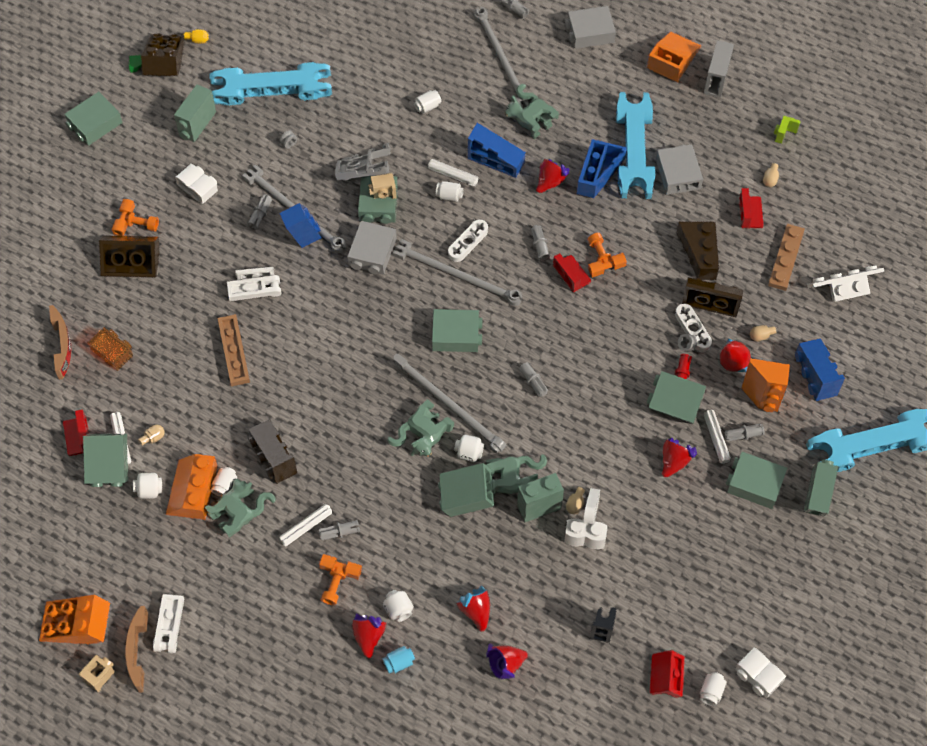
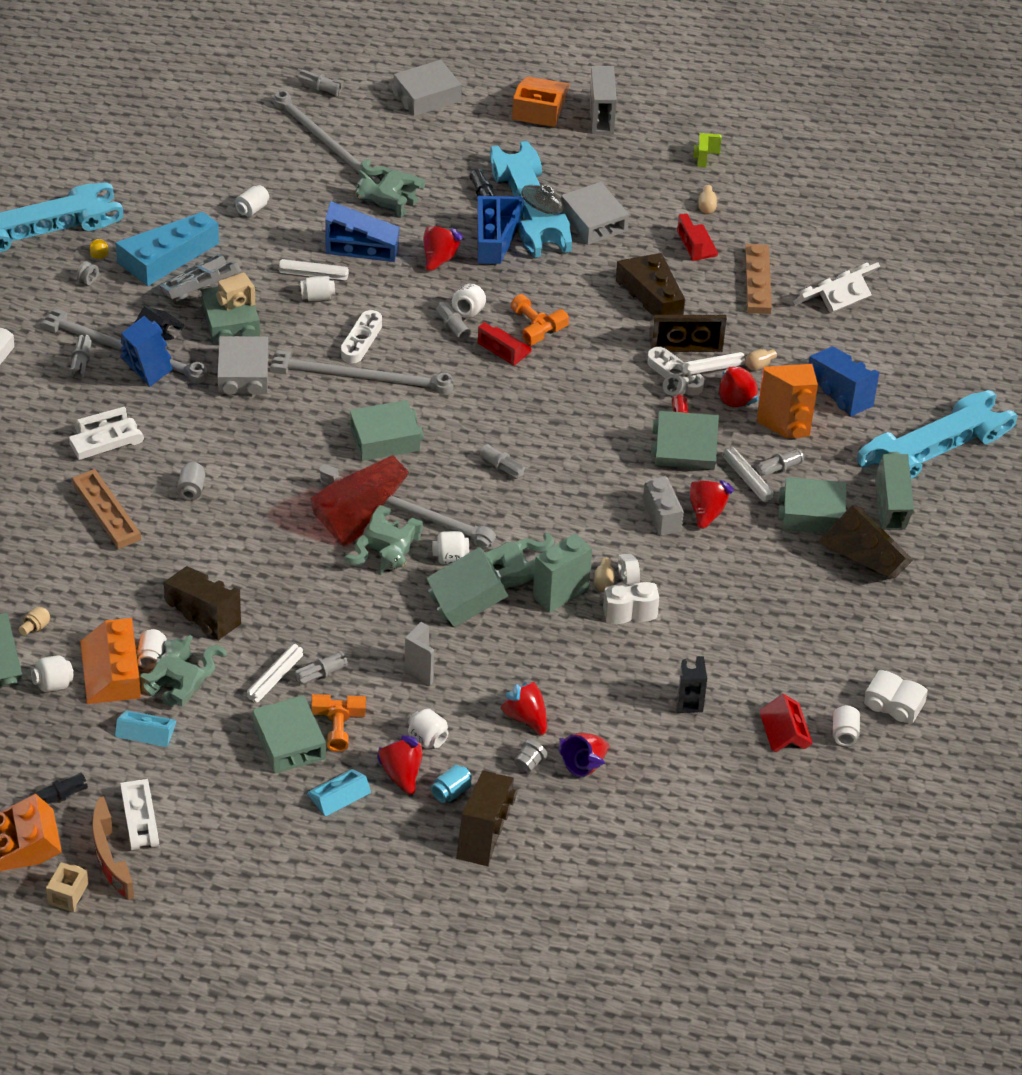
camera: 20 degrees left, 15 degrees down
(120, 587) = (62, 789): none -> black pin
(199, 547) = (145, 728): none -> medium azure slope
(296, 583) = (289, 734): none -> sand green brick
(300, 341) = (191, 481): none -> light grey brick
(304, 119) = (98, 249): none -> yellow hinge
(317, 641) = (340, 791): none -> medium azure slope
(320, 196) = (162, 318): none -> black hinge
(352, 130) = (168, 247): none -> dark azure wedge
(409, 390) = (350, 502): none -> clear red wedge
(409, 539) = (418, 654): none -> light grey panel
(412, 696) = (485, 817): none -> dark brown wedge
(464, 650) = (530, 755): none -> light grey piece
(556, 229) = (468, 300): none -> white head
(603, 126) = (482, 186): none -> black pin
(640, 451) = (663, 506): none -> light grey brick
(641, 151) = (543, 199): none -> clear smoke dish
(723, 330) = (713, 363): none -> white axle
(784, 529) = (866, 542): none -> dark brown wedge

